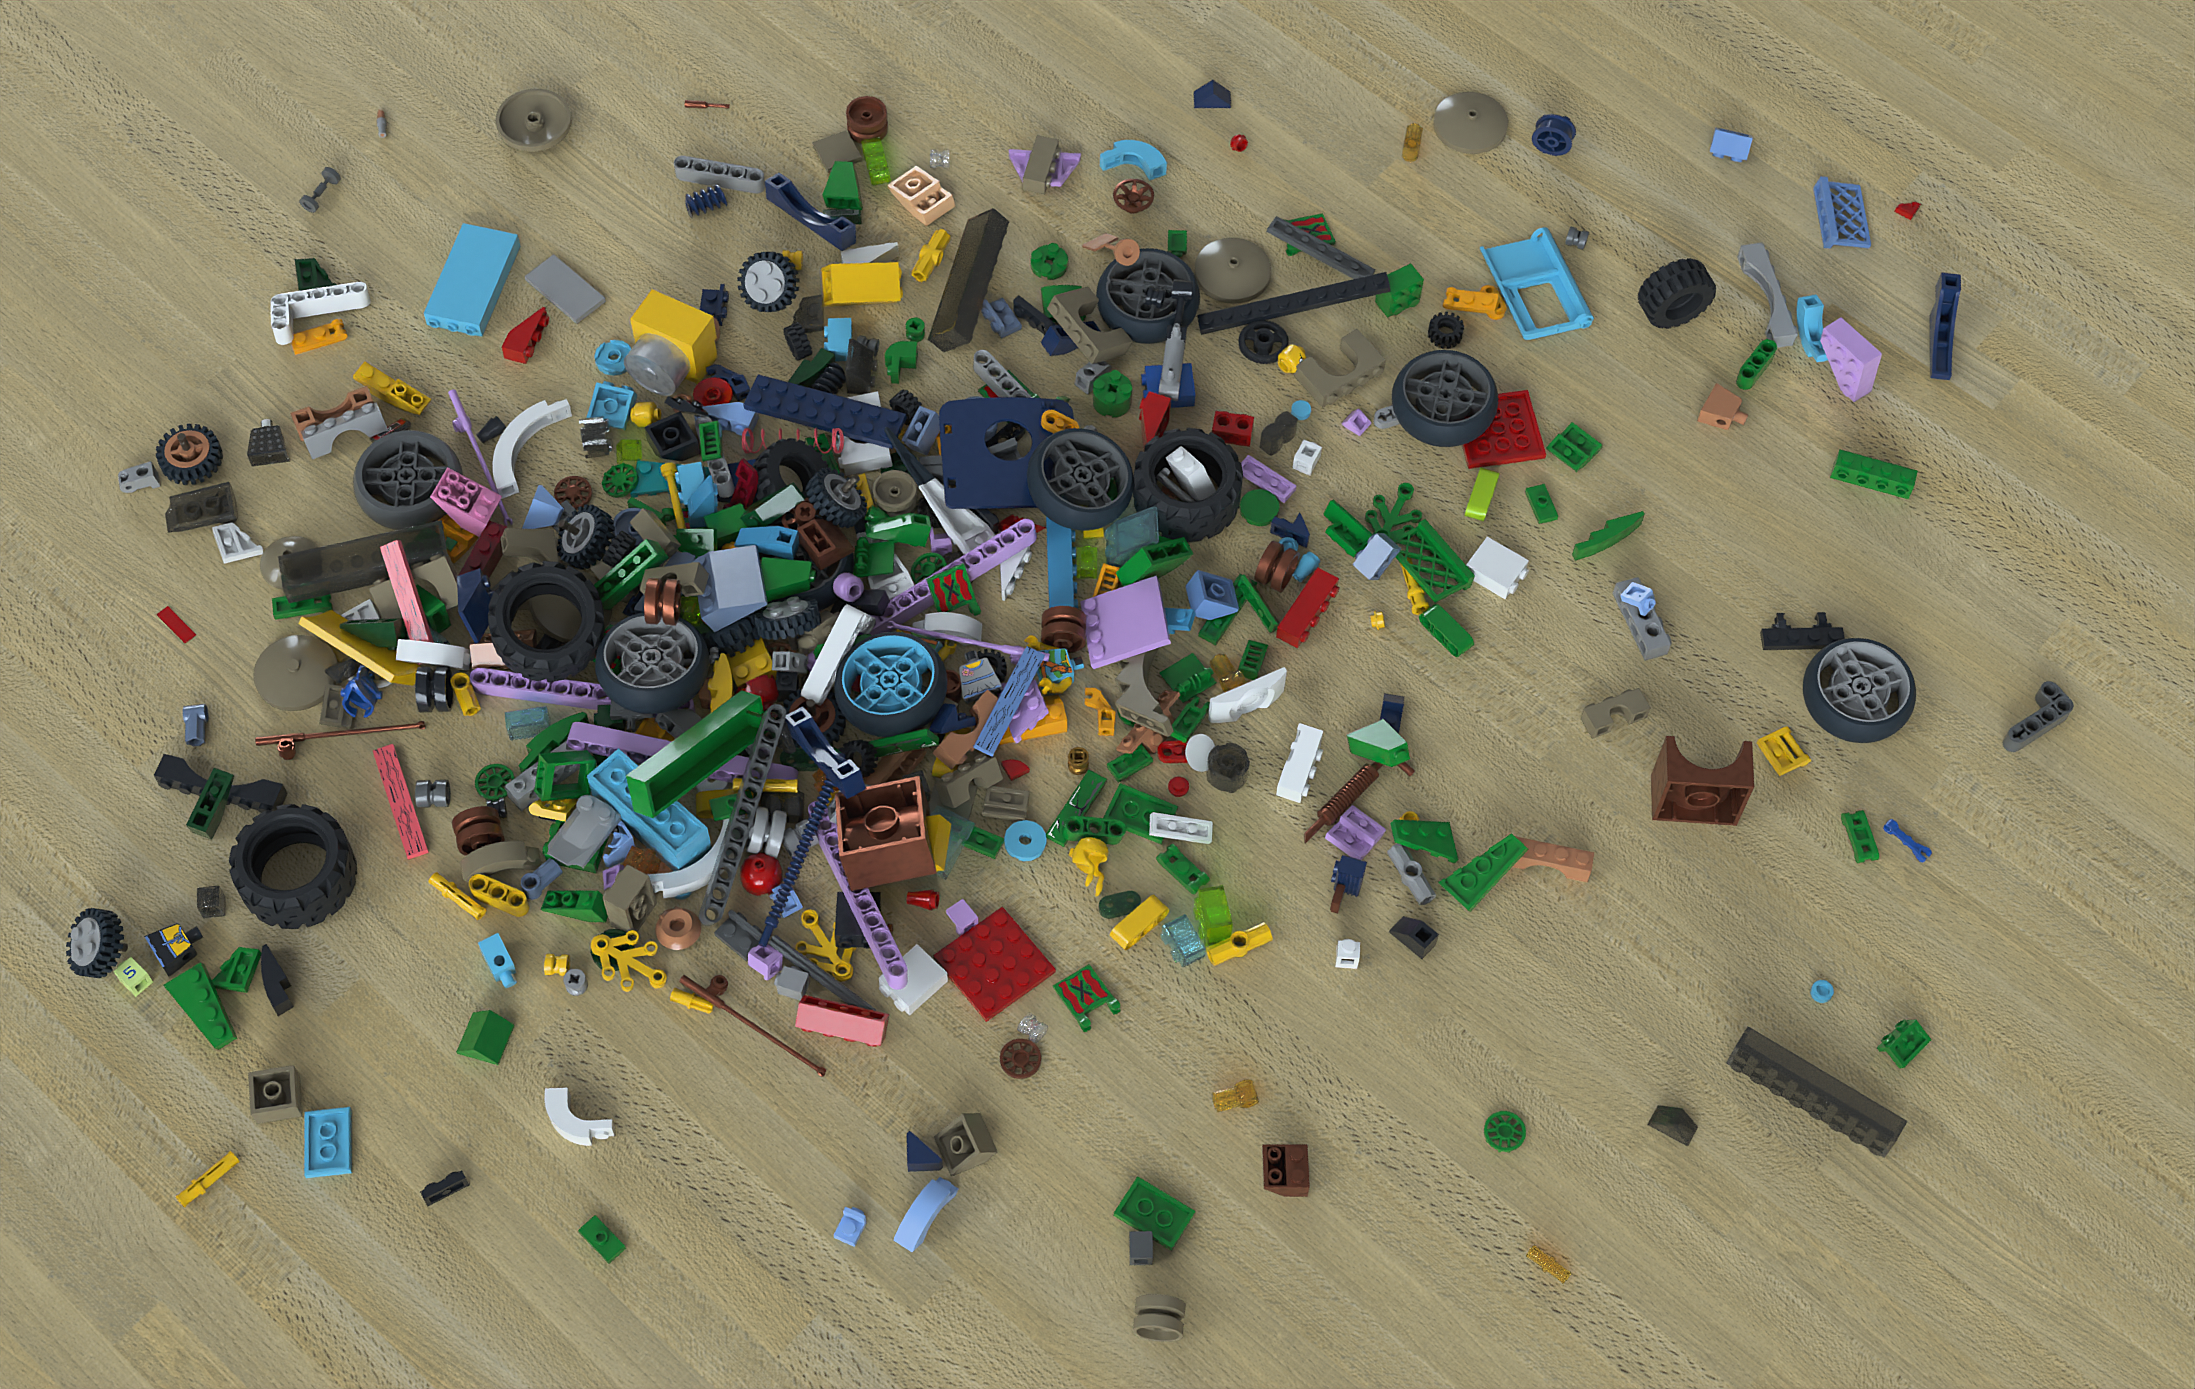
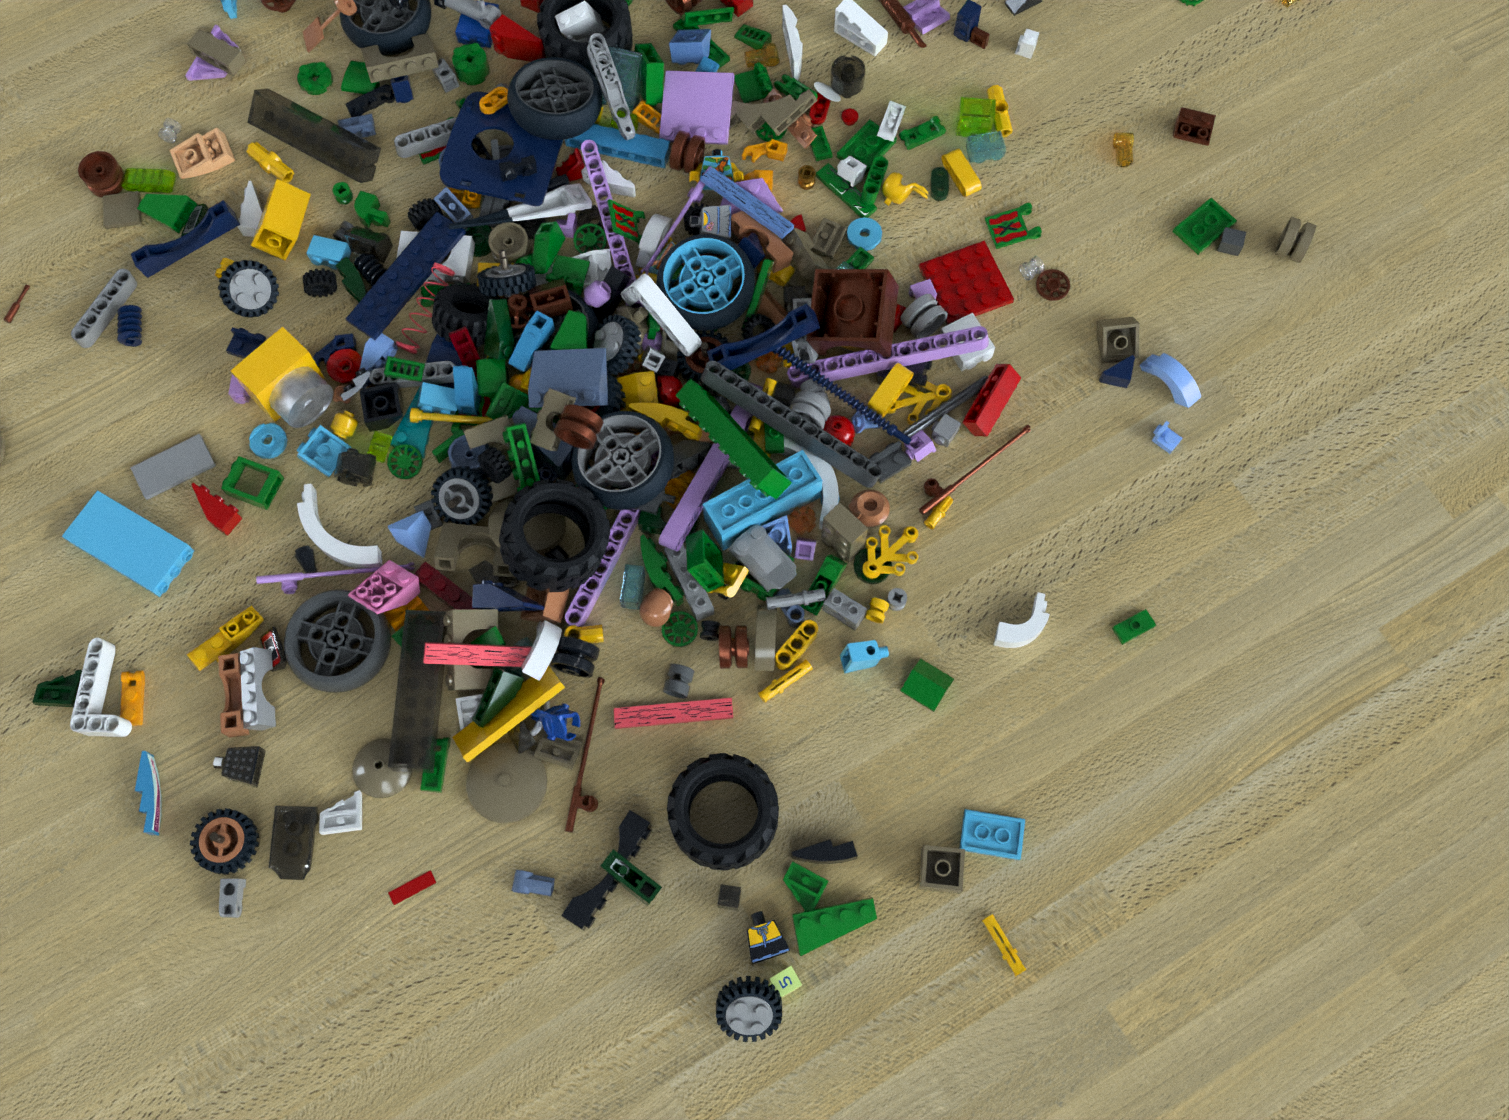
camera: 70 degrees left, 10 degrees up
(233, 378) = (149, 786): none -> dark azure slope
(437, 1191) = (1063, 746): black plate -> none
(507, 749) = (656, 607): none -> nougat hat
(547, 881) = (804, 597): none -> light grey pin
(549, 930) = (844, 609): none -> light grey brick
(561, 374) = (268, 490): none -> green window
(573, 492) = (400, 504): copper wheel -> none
(810, 314) = (291, 271): clear smoke wing -> none
(818, 907) = (890, 389): none -> yellow beam
(925, 922) = (924, 316): none -> light grey wheel
(982, 475) = (510, 171): none -> black piece
(1098, 802) = (851, 170): none -> white brick
(1101, 528) = (610, 87): none -> light grey piece

